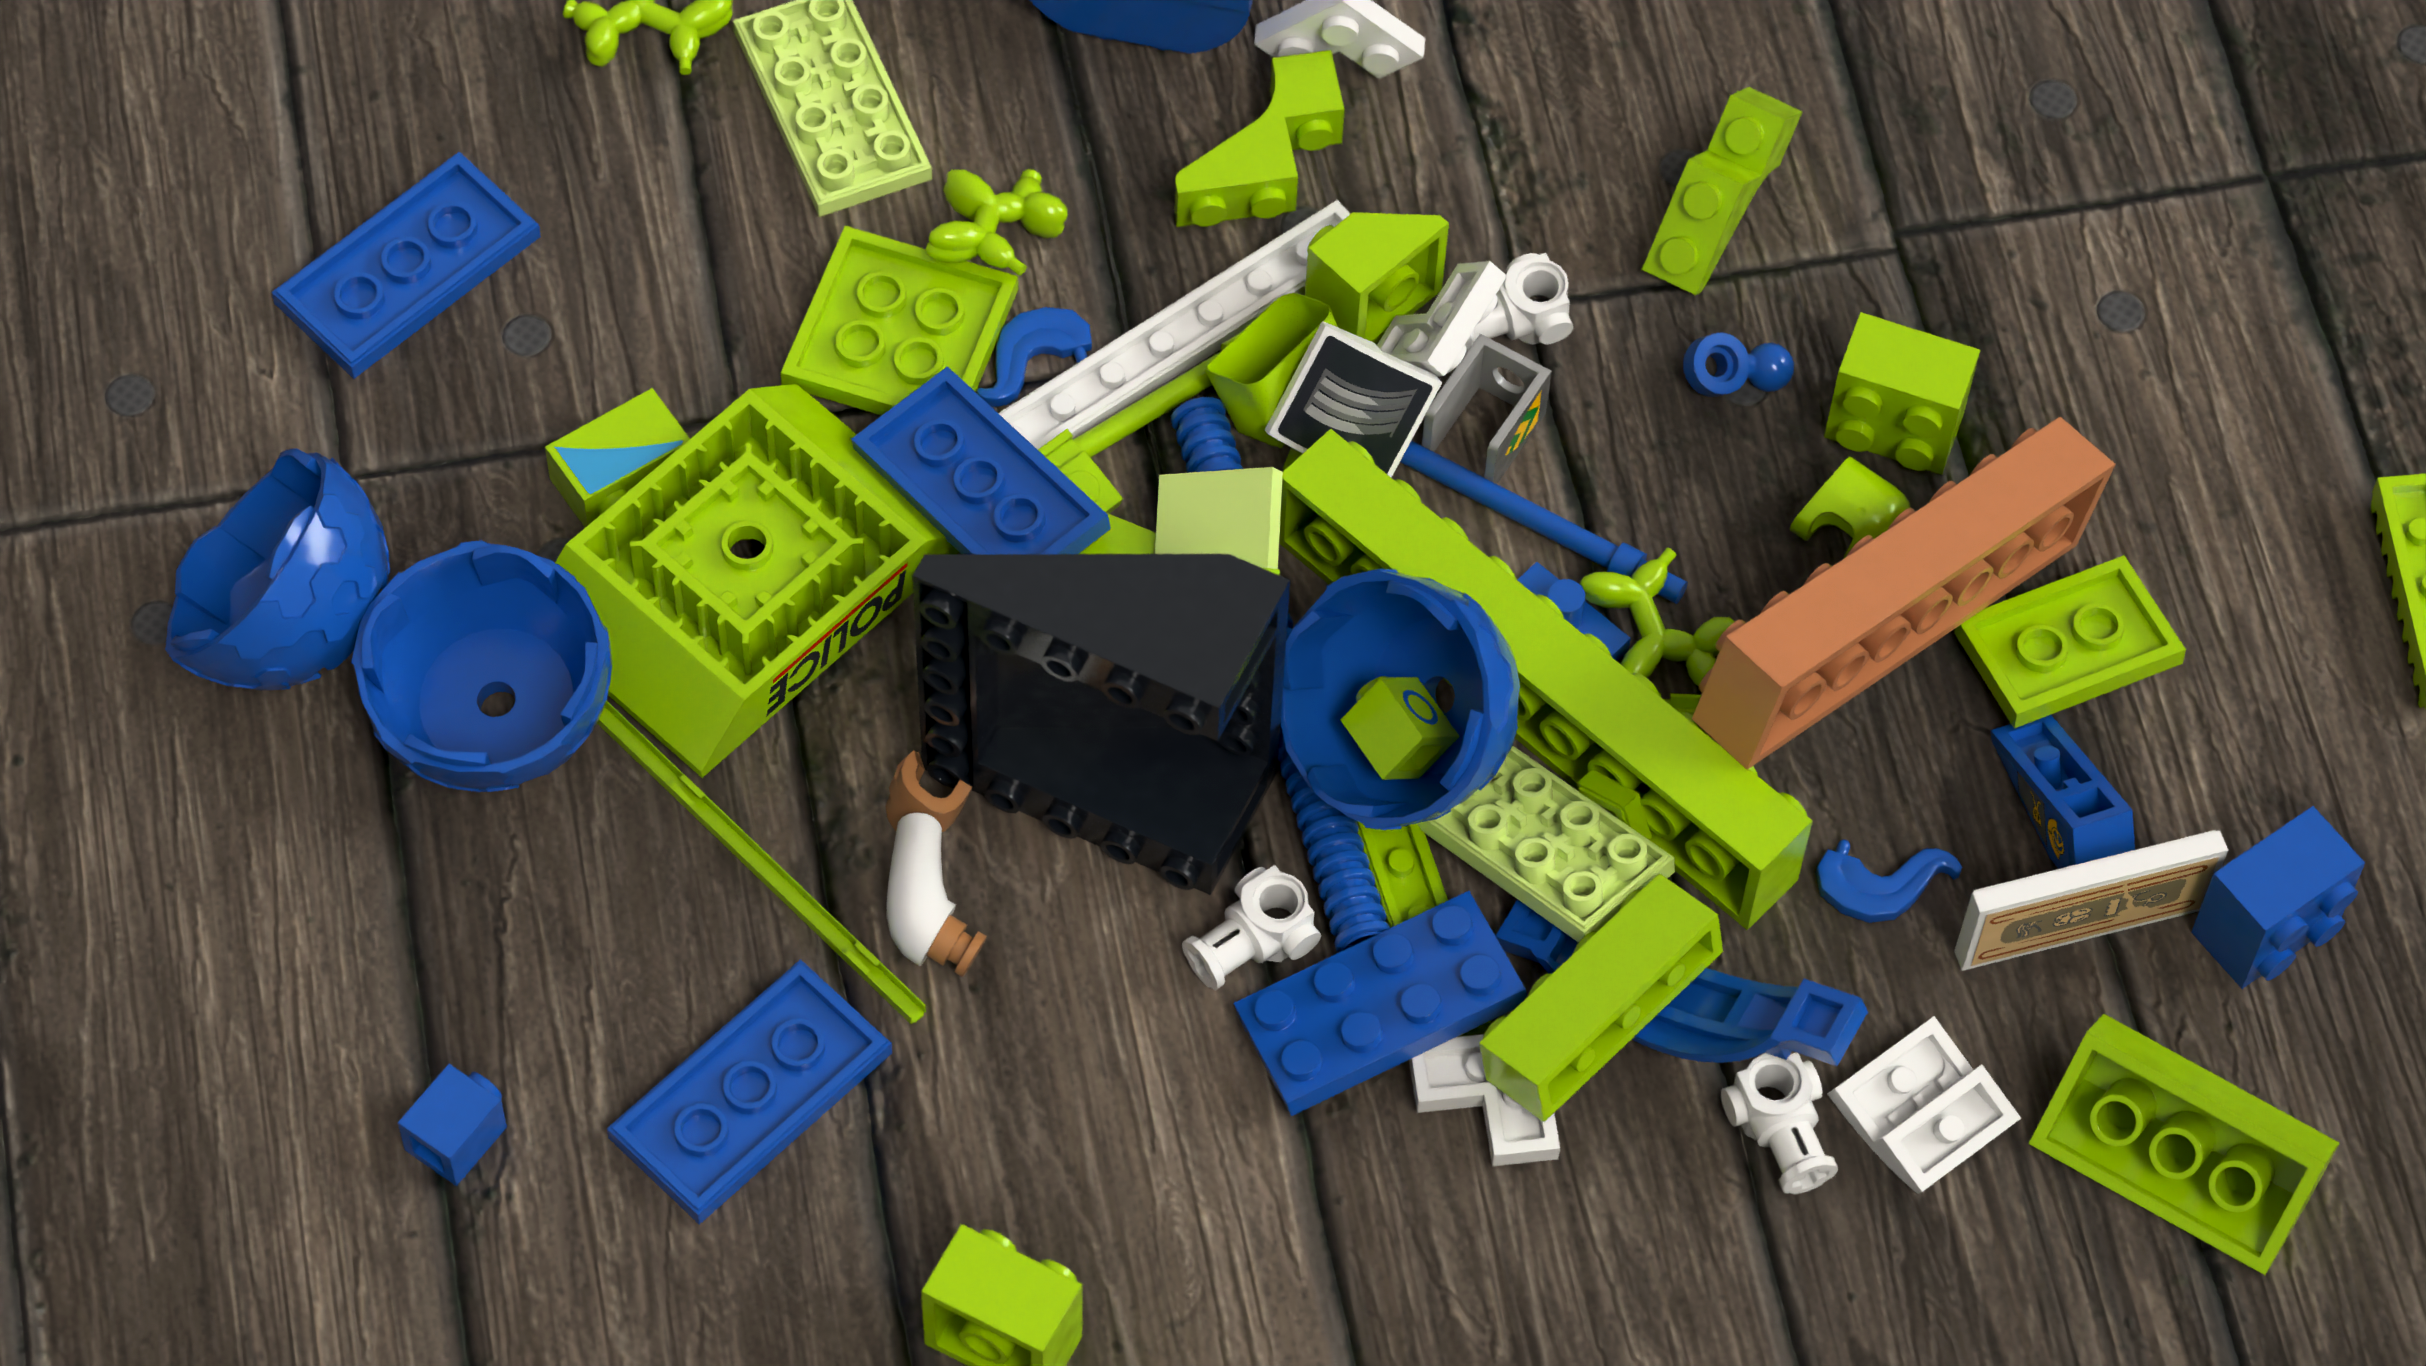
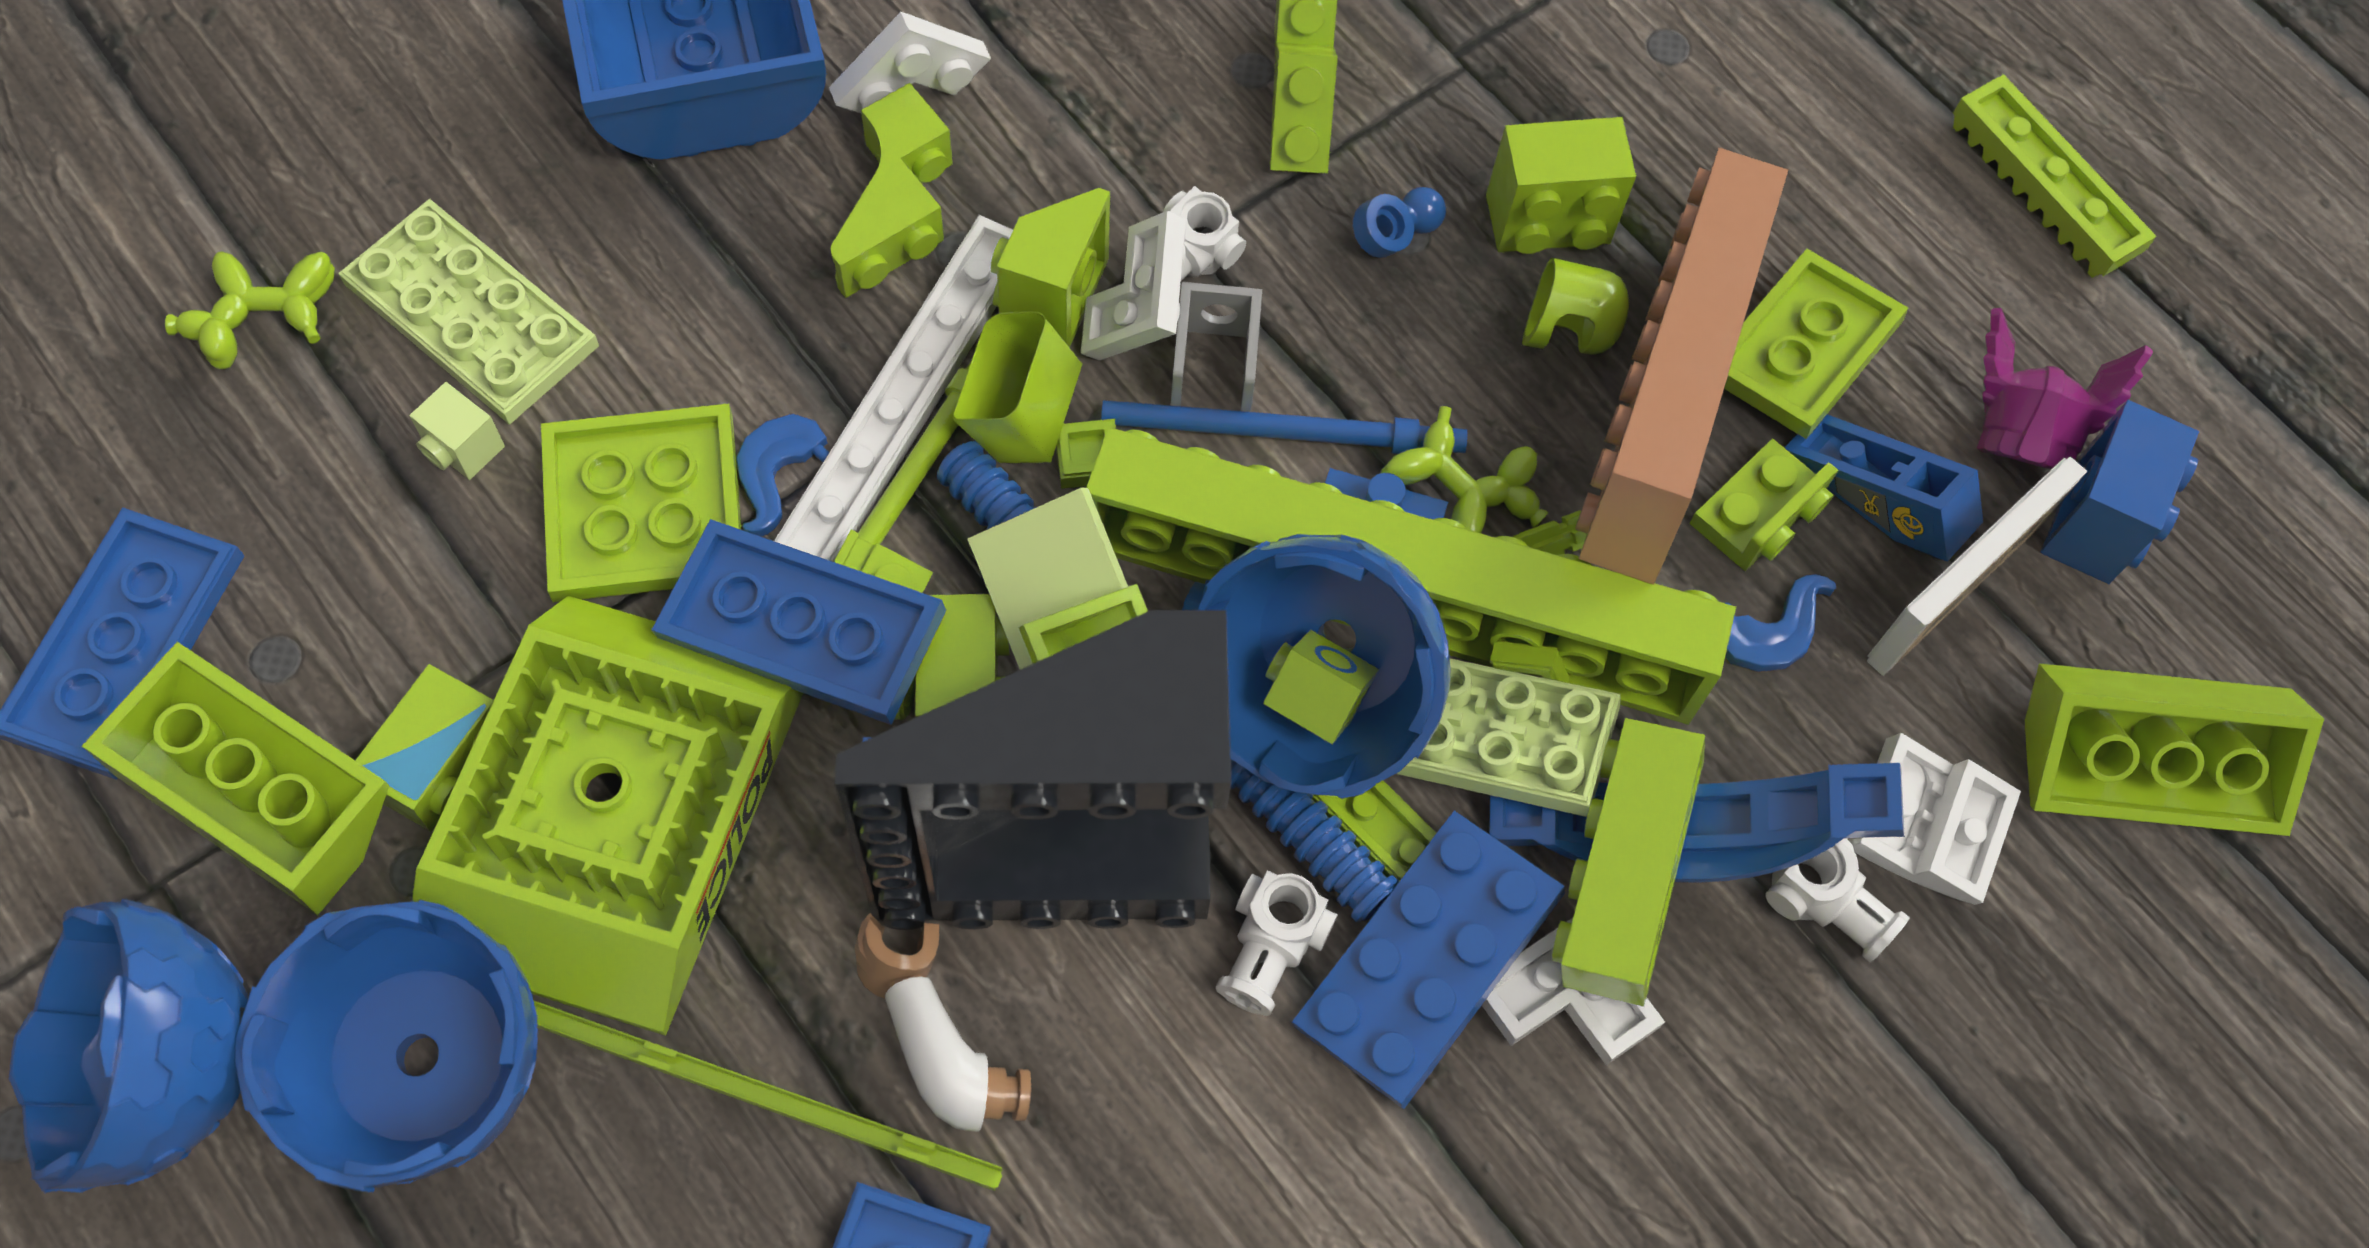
camera: 30 degrees left, 5 degrees up
(459, 415) = (243, 776): none -> lime slope
(768, 203) = (455, 432): none -> yellowish green plate
(973, 198) = (652, 348): lime piece -> none
(1356, 393) = (1102, 383): slope -> none
(1936, 769) = (1761, 503): none -> lime bracket
(2250, 789) = (2042, 411): none -> magenta helmet

